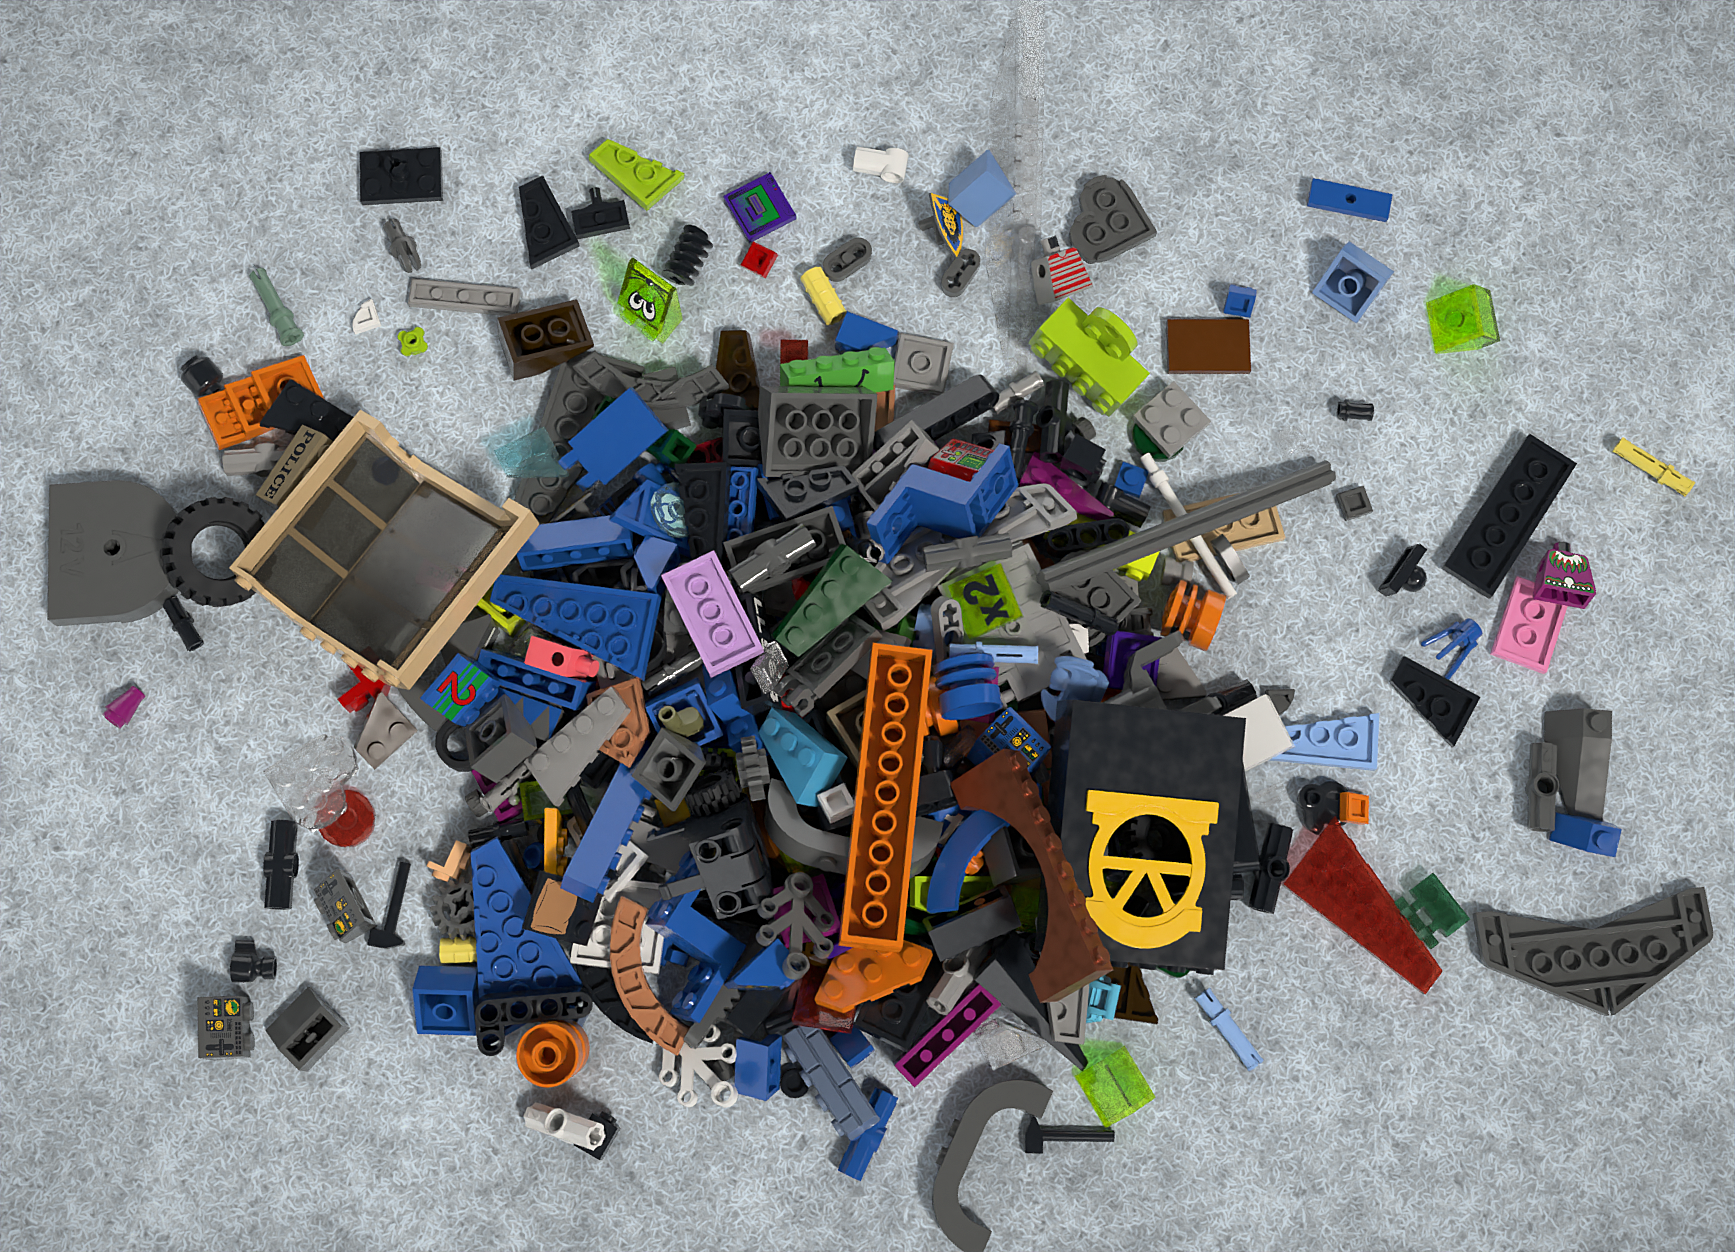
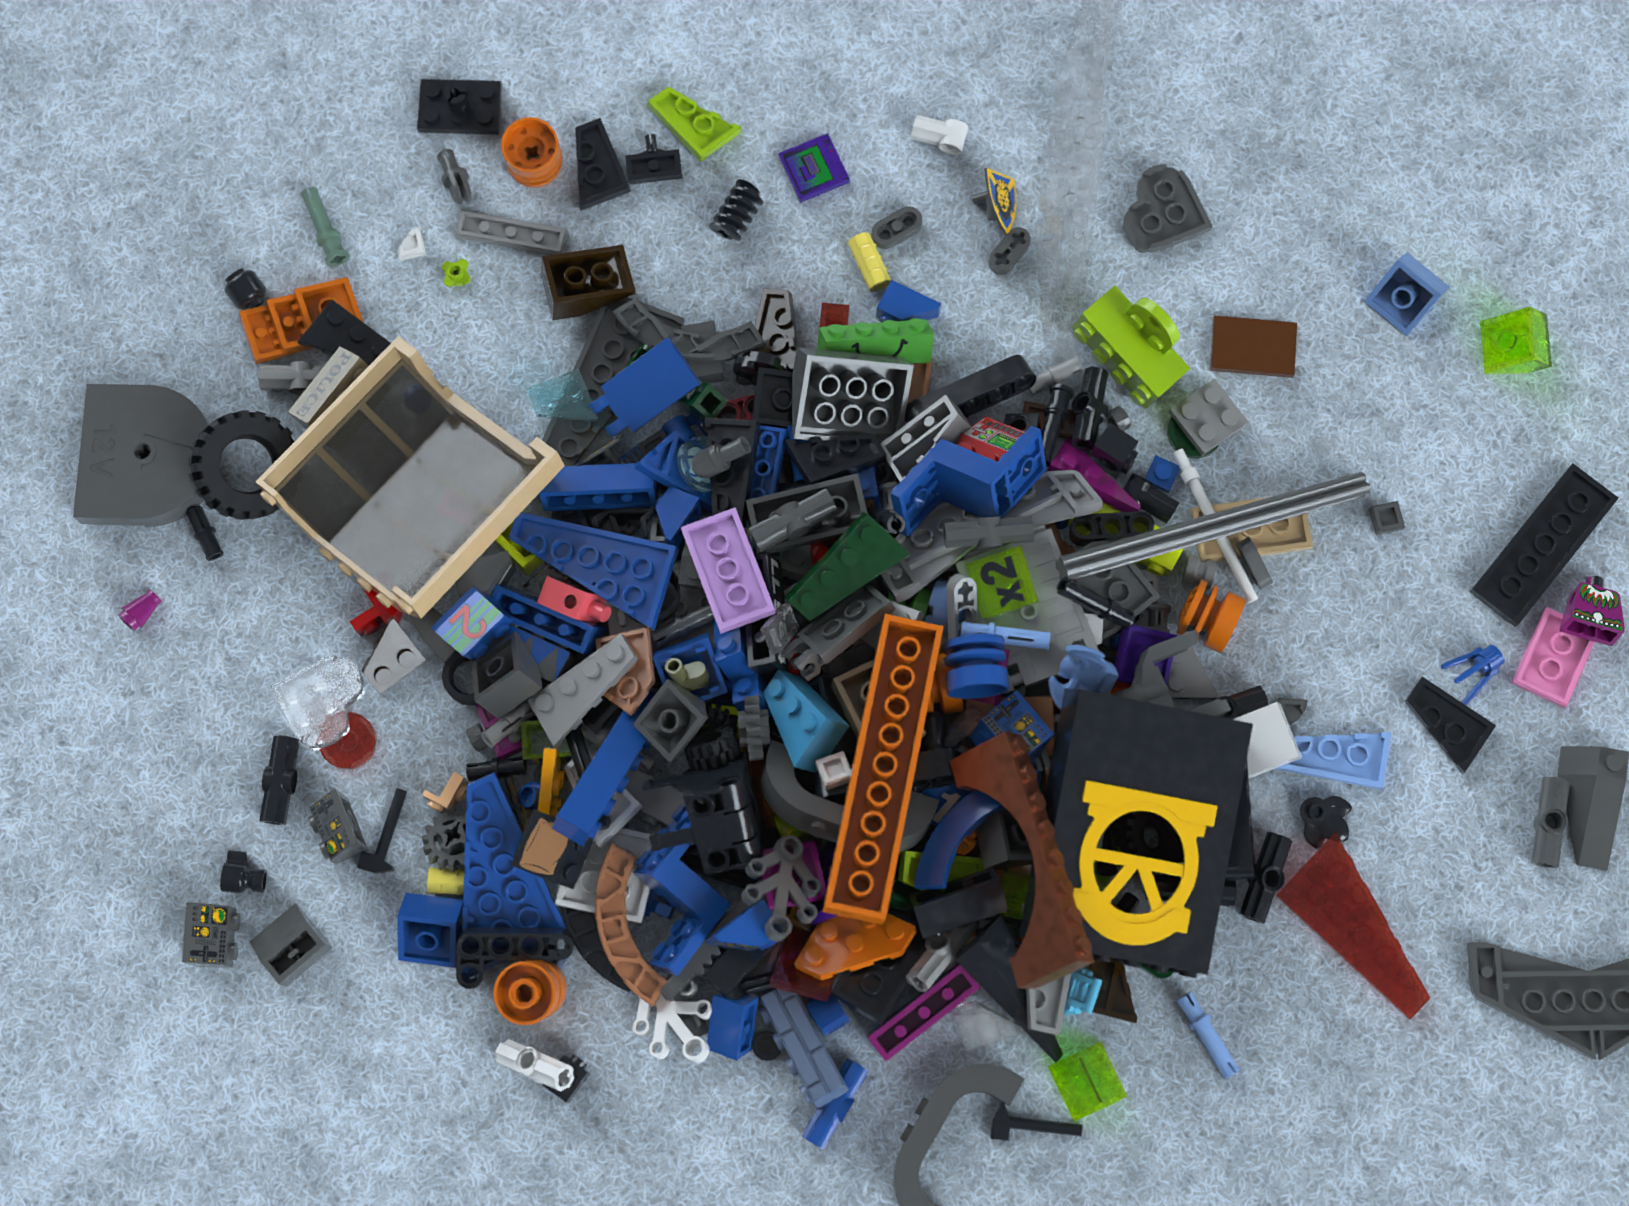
camera: 10 degrees right, 0 degrees up
(473, 201) = (527, 138): none -> orange wheel
(649, 302) = (694, 254): clear neon green slope -> none
(672, 817) = (669, 769): yellow tile -> none
(692, 502) = (718, 457): none -> dark grey arm
(759, 260) = (808, 220): red tile -> none
(922, 364) = (962, 339): light grey tile -> none
(980, 190) = (1037, 168): medium blue slope -> none
(1058, 272) = (1108, 259): light grey torso -> none
(1240, 301) = (1289, 303): blue tile -> none
(1351, 410) = (1396, 424): black pin -> none
(1354, 808) = (1356, 825): orange tile -> none
(1365, 202) = (1426, 216): blue tile -> none
(1406, 572) = (1432, 593): black tile -> none
(1438, 905) = (1432, 931): clear green plate -> none
(1586, 834) = (1590, 874): blue slope -> none

